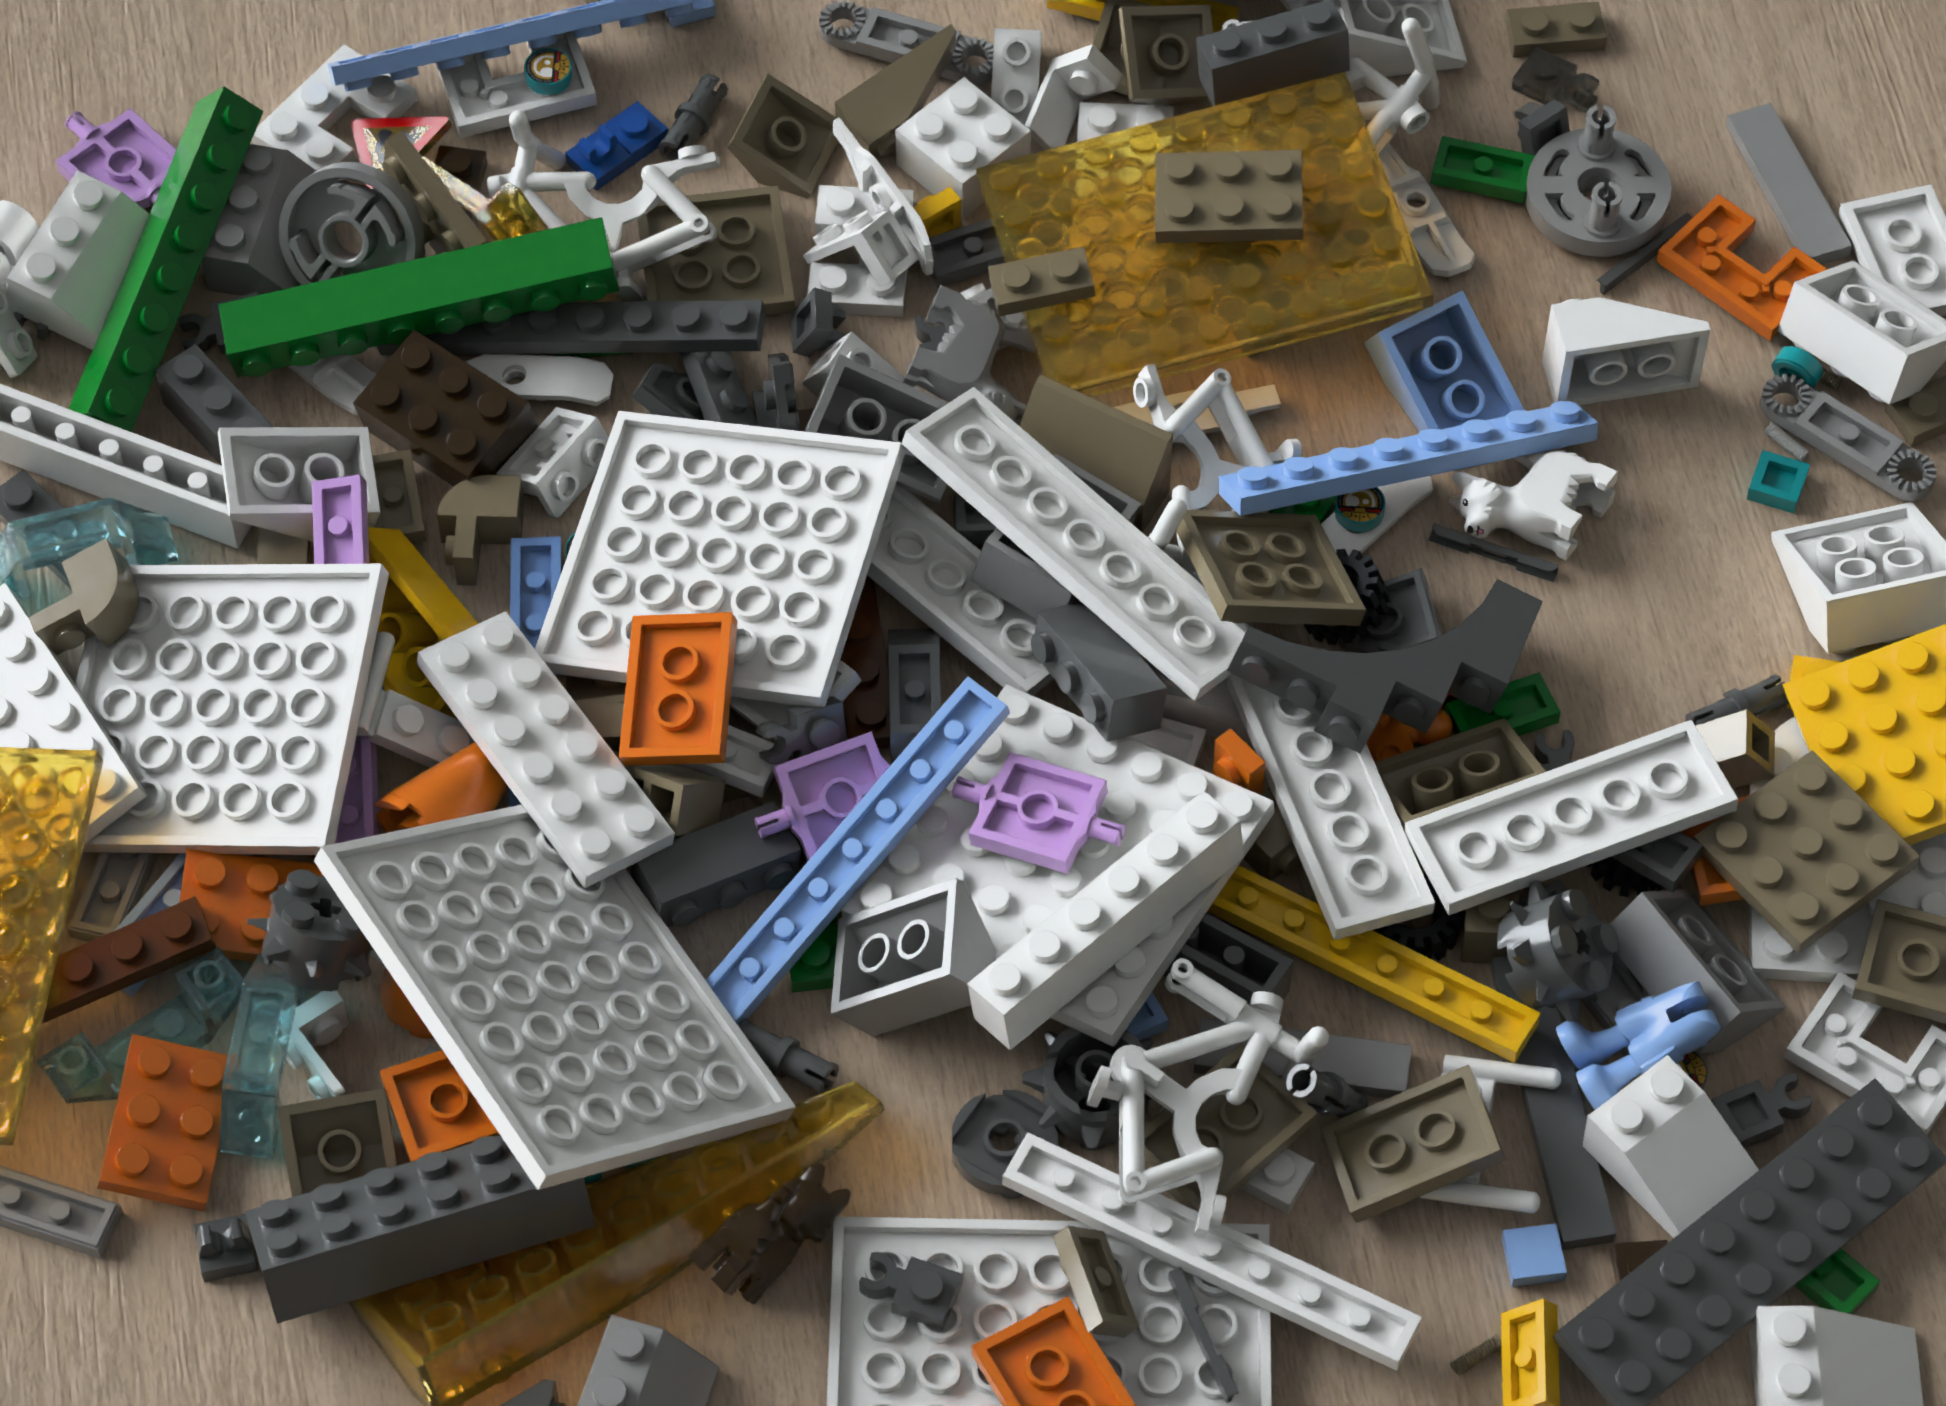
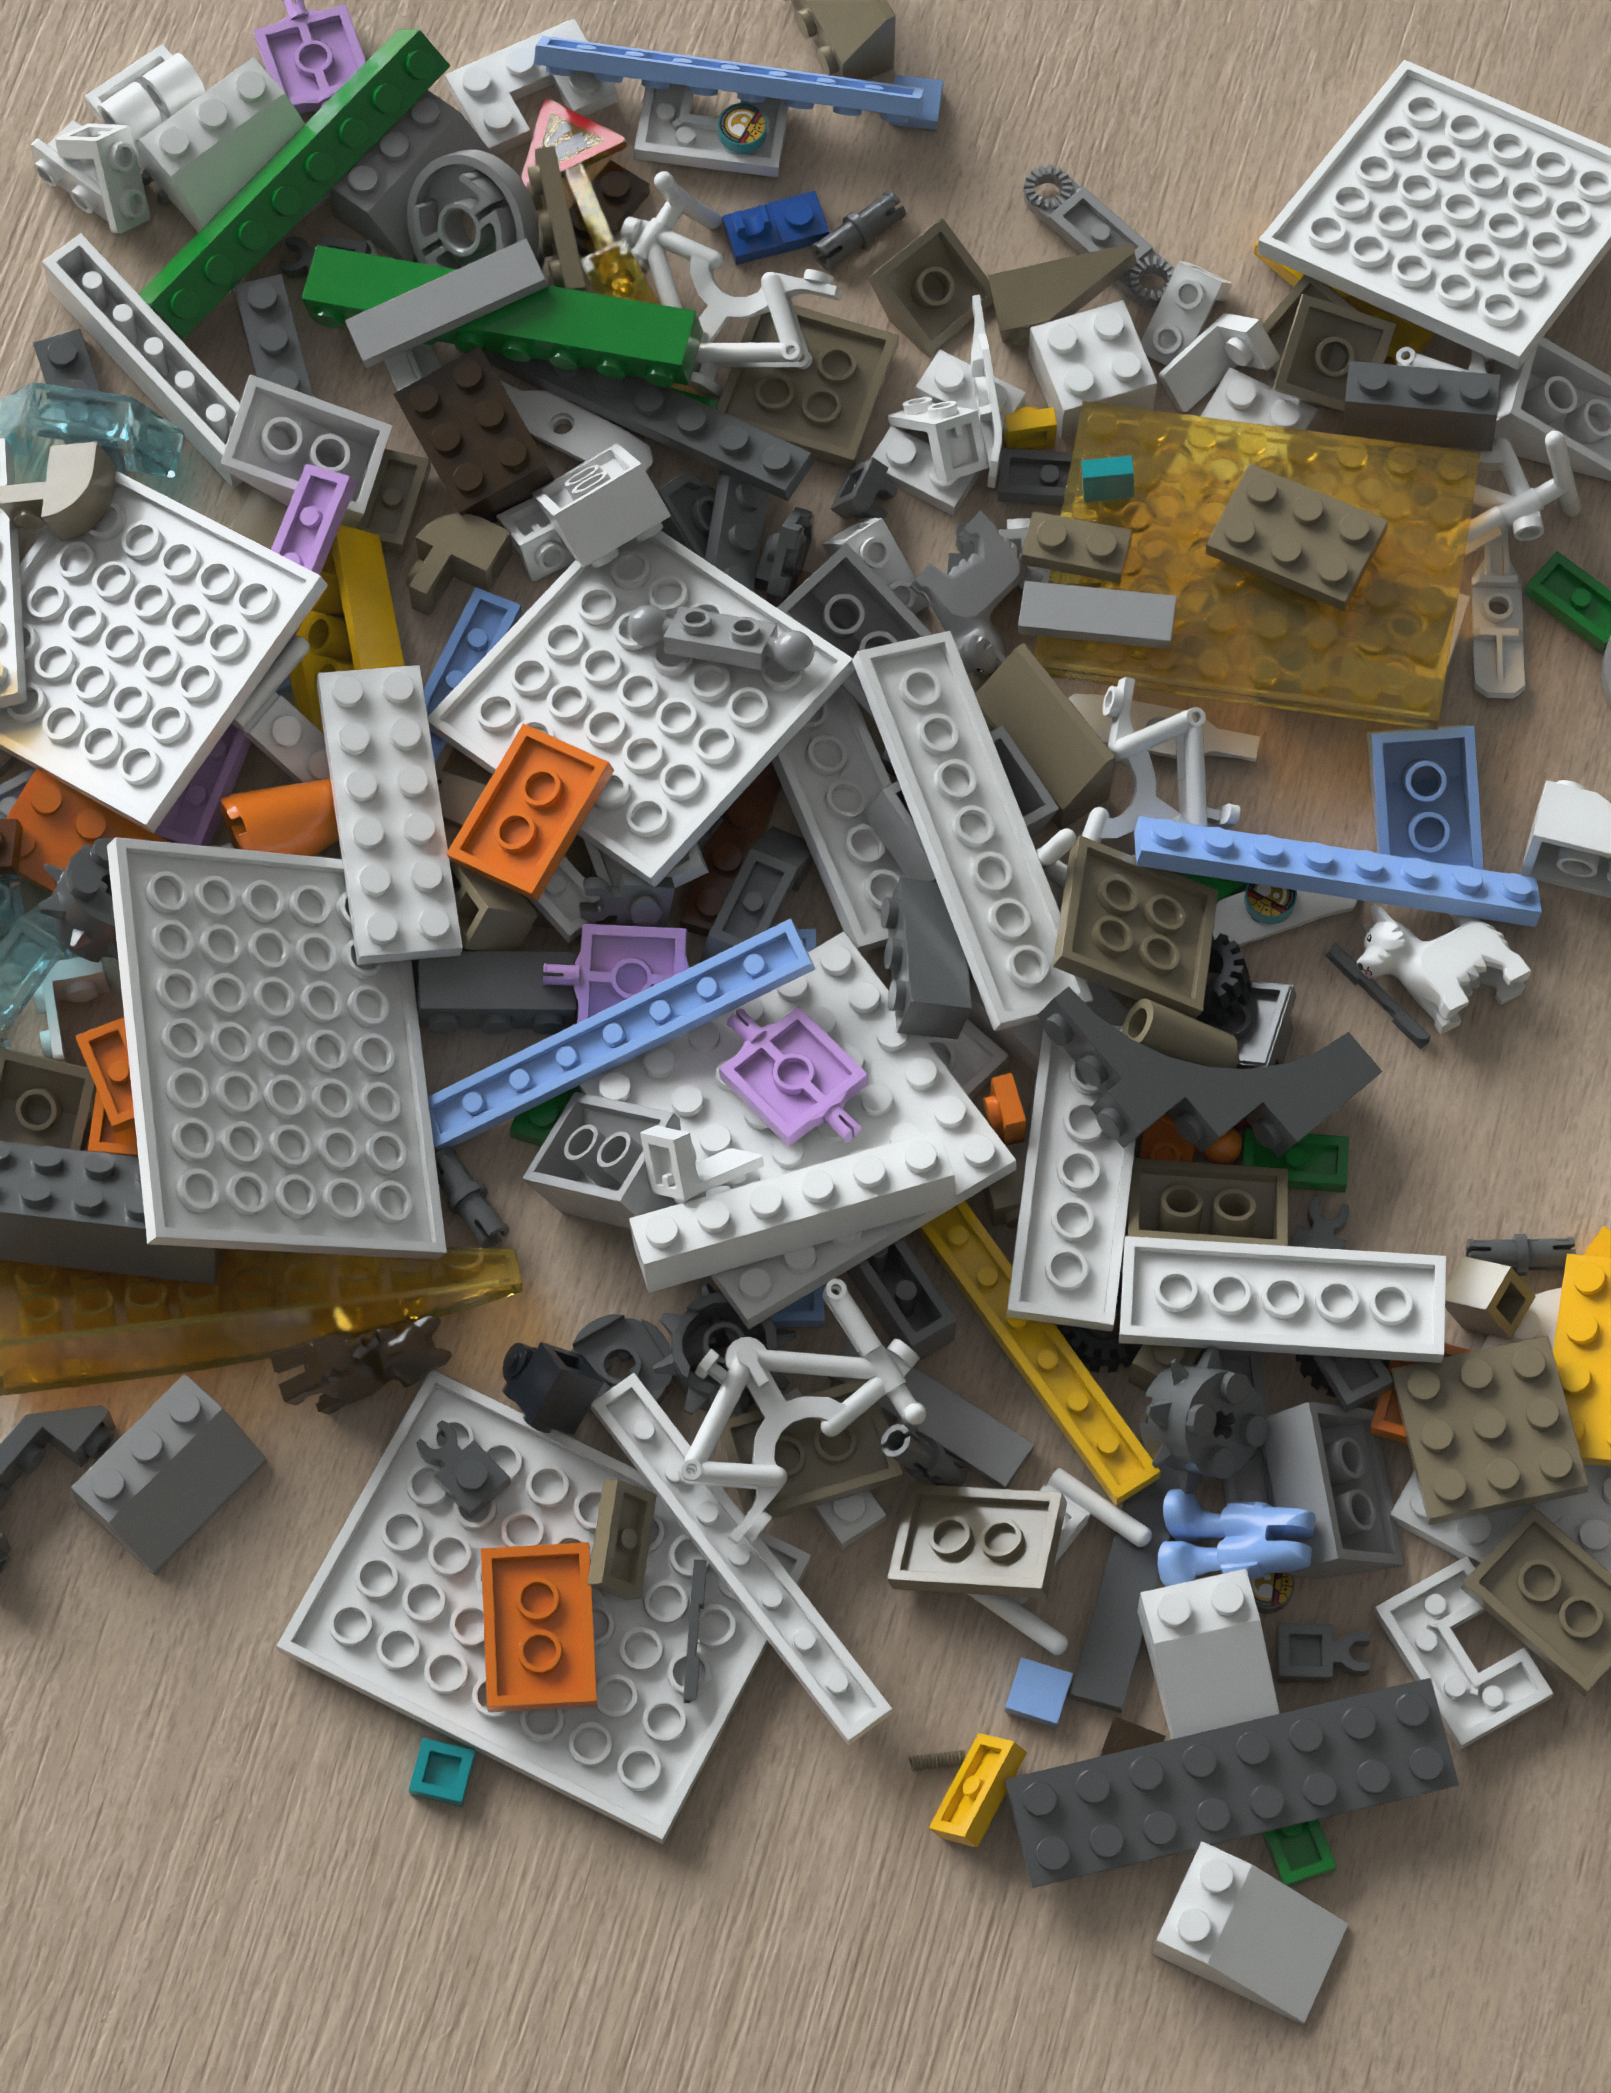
camera: 25 degrees right, 10 degrees up
(367, 301) = (446, 303): none -> light grey tile
(410, 1078) = (108, 1064): none -> orange plate
(601, 412) = (603, 506): none -> white slope
(773, 473) = (720, 638): none -> light grey plate
(956, 1176) = (550, 1386): none -> black brick
(986, 923) = (673, 1169): none -> white bracket
(1039, 213) = (1107, 479): none -> teal tile
(1091, 327) = (1097, 614): none -> light grey tile
(1356, 634) = (1180, 1035): none -> dark tan brick

